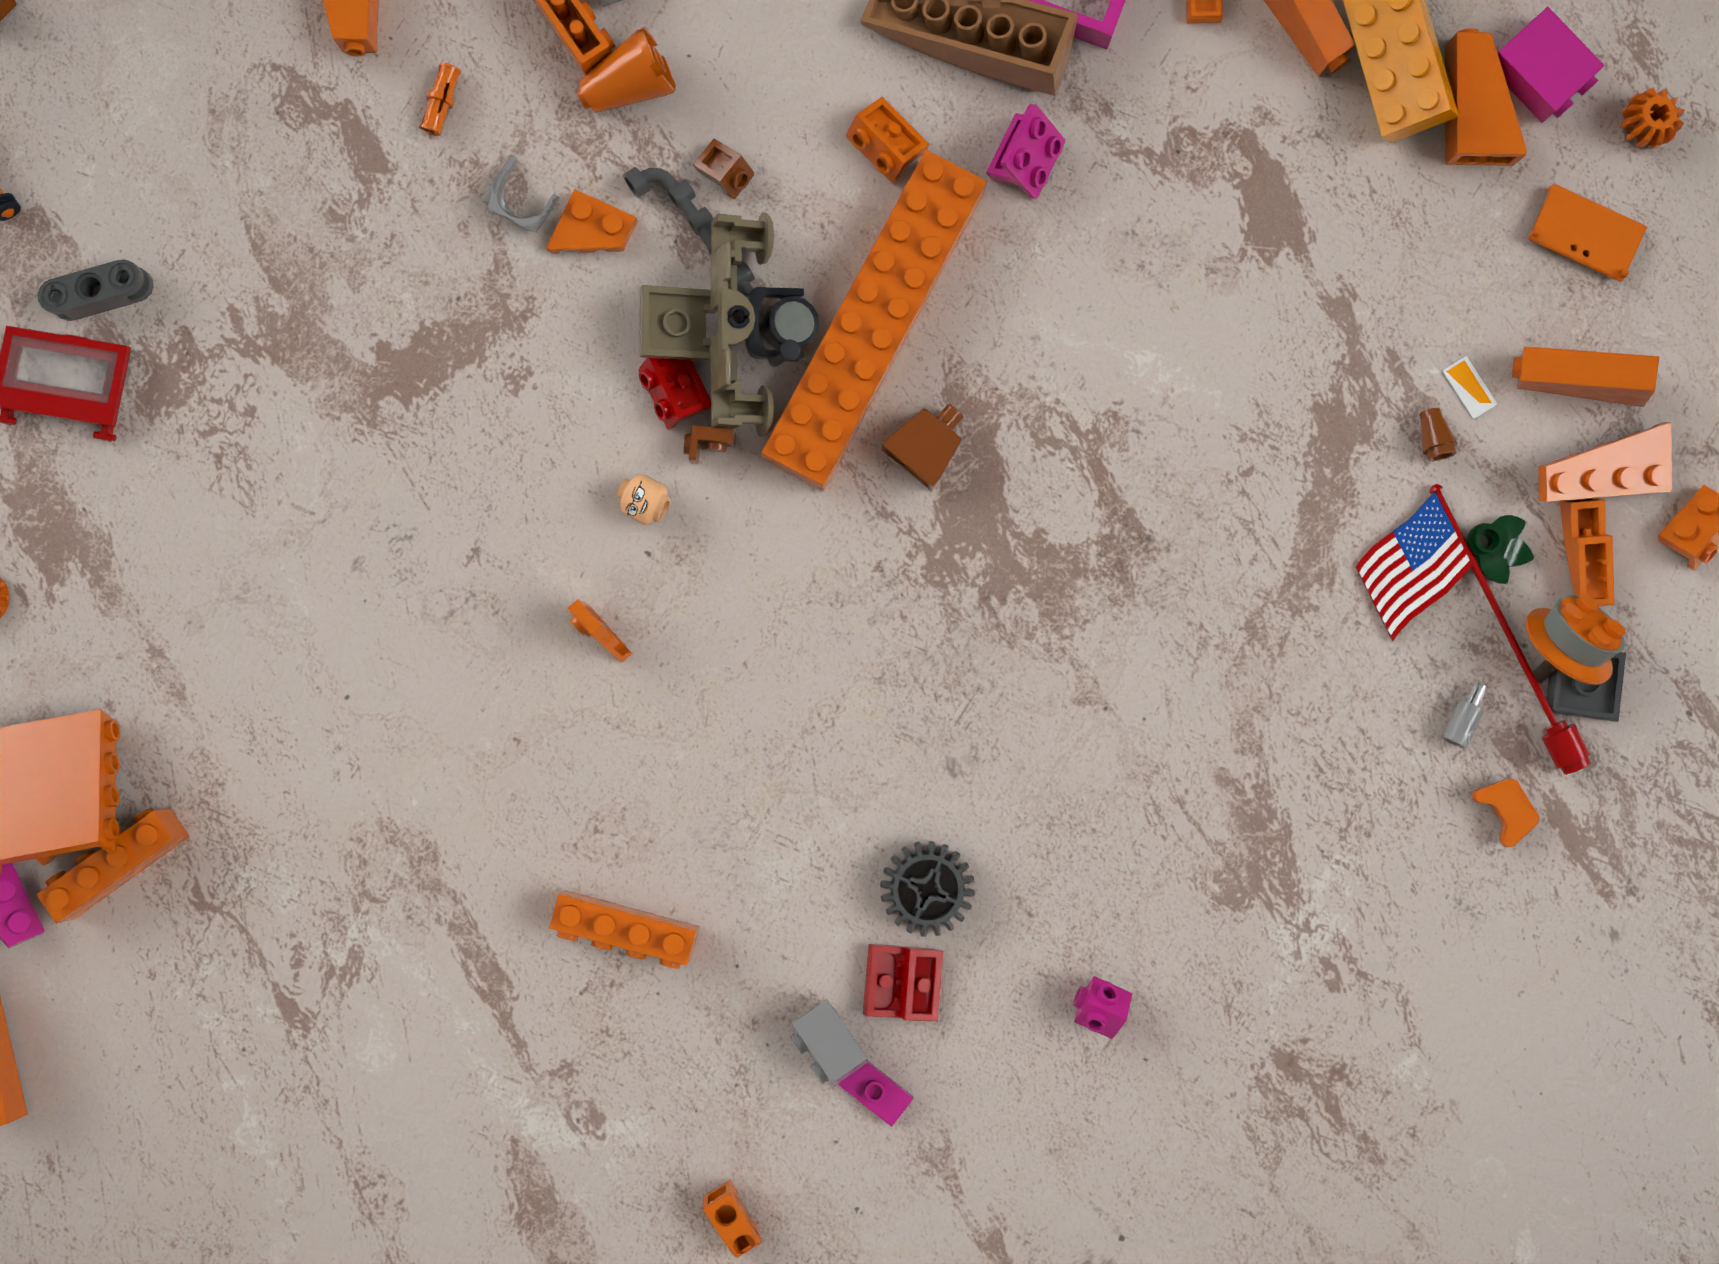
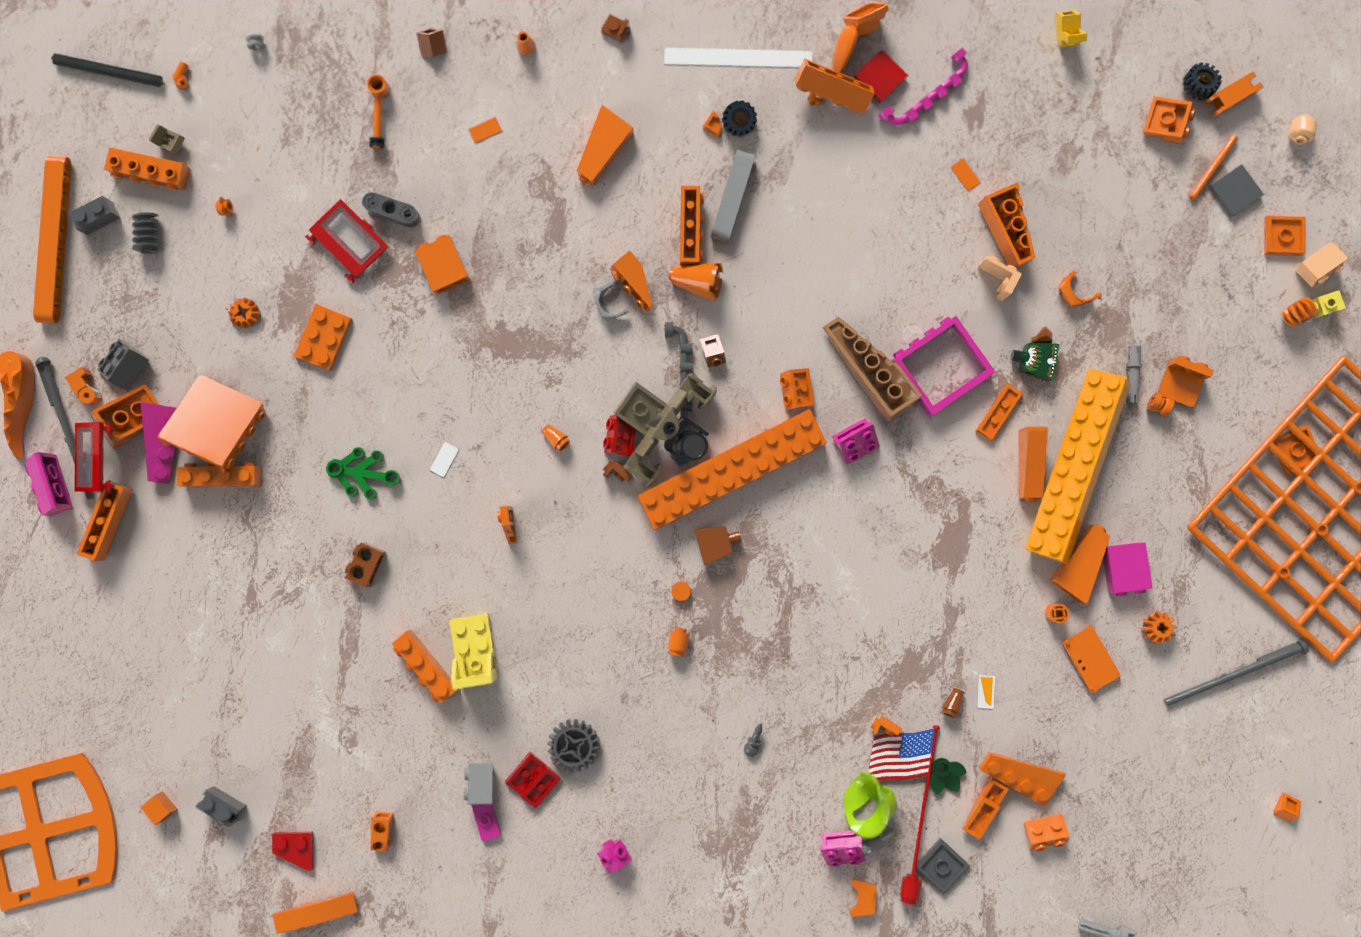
camera: 40 degrees right, 0 degrees up
(126, 551) = (323, 337): none -> orange plate
(155, 79) = (485, 129): none -> orange sticker
(230, 318) = (442, 264): none -> orange panel
(323, 711) = (359, 472): none -> green plant
(436, 840) = (369, 567): none -> dark orange brick
(437, 605) = (444, 459): none -> white sticker
(440, 99) = (606, 229): orange pin -> none
(523, 138) = (632, 276): none -> orange slope
(582, 456) = (556, 438): none -> orange cone
(591, 226) = (634, 335): orange wing -> none
(643, 499) = (570, 478): light nougat head -> none
(679, 855) = (473, 652): none -> light yellow bracket
(925, 552) = (681, 591): none -> orange tile
(974, 627) = (678, 642): none -> orange brick
(1190, 707) = (751, 748): none -> dark grey bar
(1369, 533) = (889, 727): none -> orange bracket
(1395, 647) = (859, 792): none -> lime piece
(1427, 757) = (842, 848): none -> dark pink bracket
(1485, 205) = (1053, 611): none -> orange wheel
(1575, 639) = (947, 843): orange piece -> none
(1588, 374) = (1041, 724): orange slope -> none

